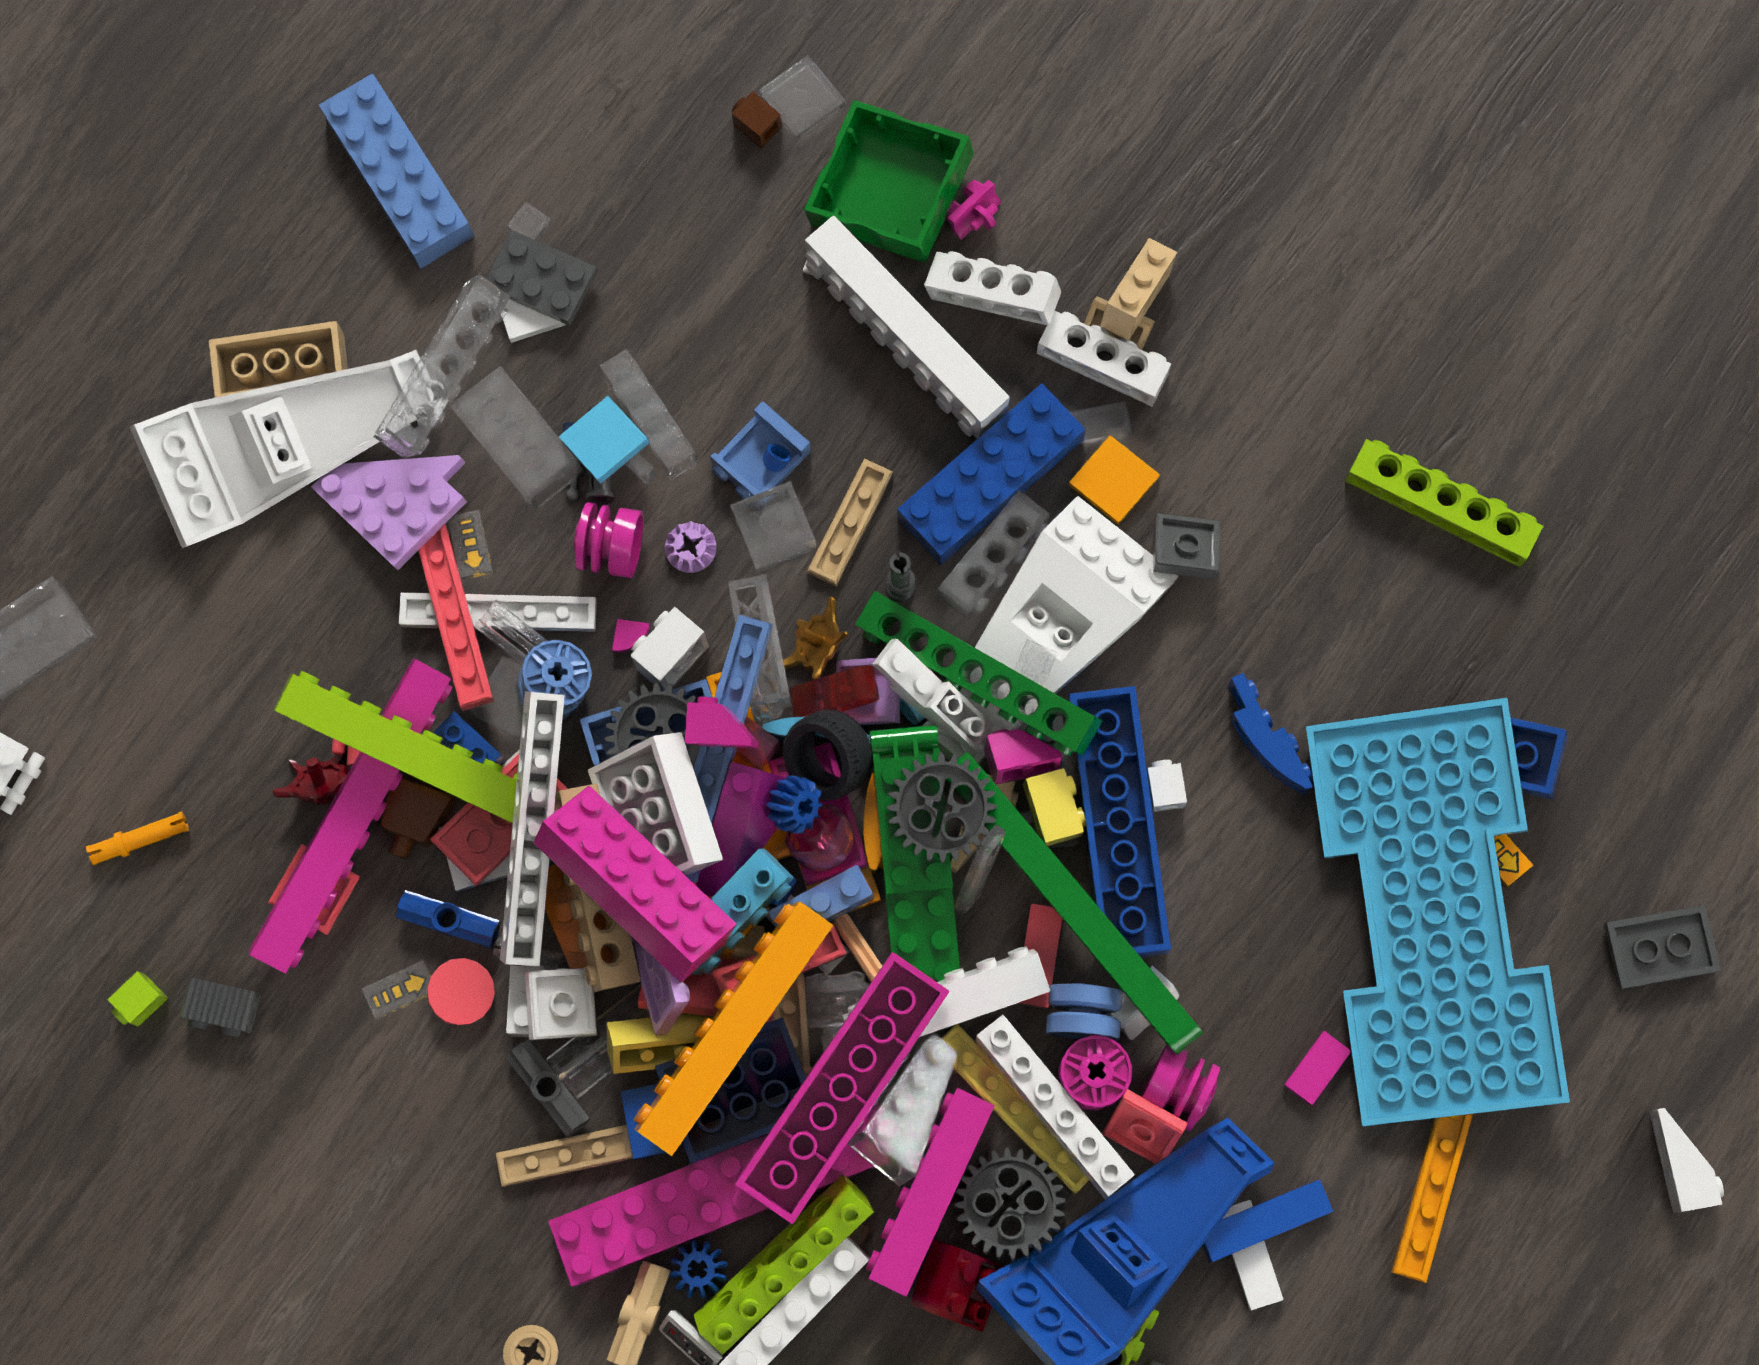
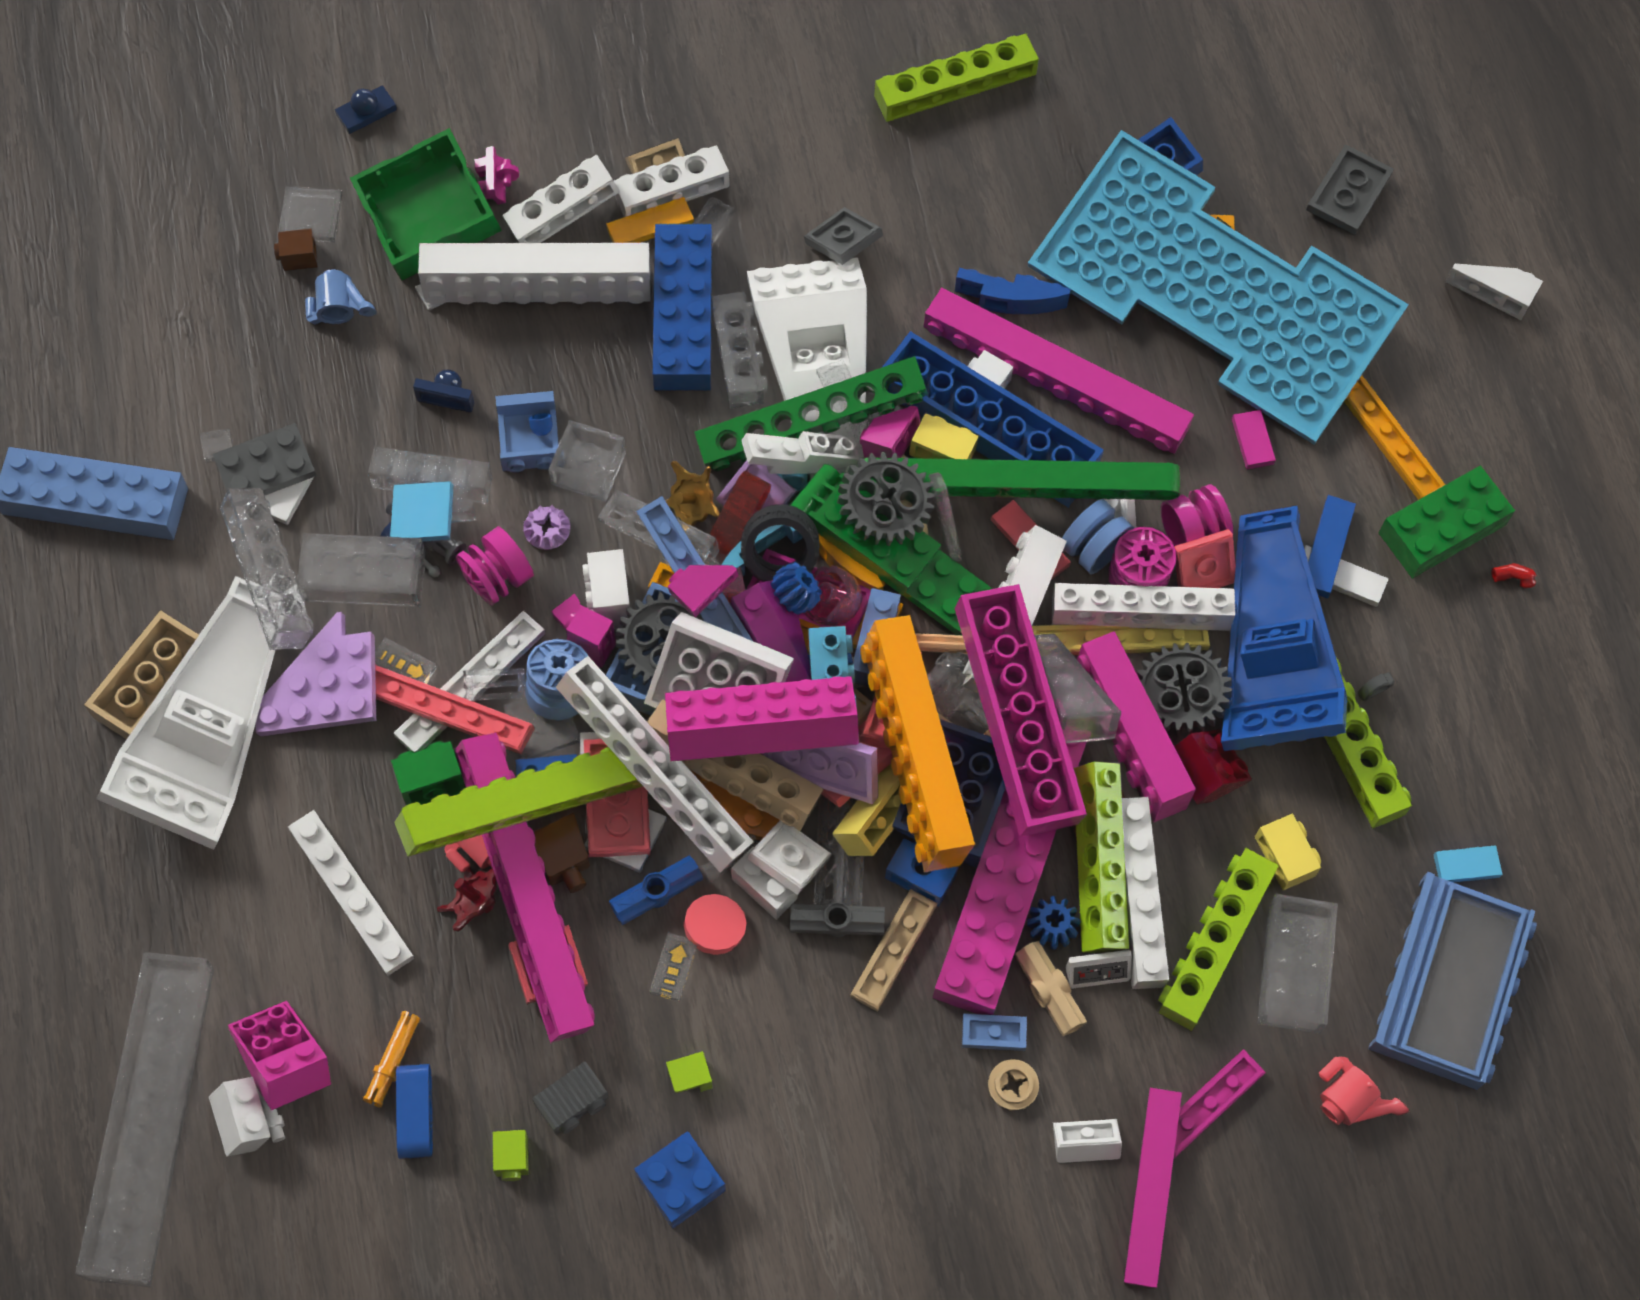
camera: 55 degrees left, 10 degrees down
(66, 750) = (280, 1055): none -> dark pink slope
(110, 894) = (414, 1111): none -> blue beam
(224, 1151) = (680, 1179): none -> blue brick
(245, 682) = (351, 893): none -> white plate
(316, 1083) = (690, 1073): none -> lime panel
(378, 652) = (428, 773): none -> green brick
(561, 1299) = (994, 1032): none -> medium blue plate
(614, 671) = (592, 633): none -> dark pink brick
(736, 355) = (444, 391): none -> dark blue tile
(737, 192) = (336, 299): none -> medium blue piece
(850, 522) = (628, 418): tan tile -> none
(900, 578) = (701, 411): dark grey pin -> none
(941, 47) = (365, 108): none -> dark blue tile
(1057, 376) = (641, 225): none -> light orange tile
(1114, 480) = (756, 243): light orange tile -> none
(1138, 289) = (649, 123): tan brick -> none
(1225, 843) = (1059, 371): none -> dark pink brick
(1387, 1308) = (1446, 521): none -> green brick

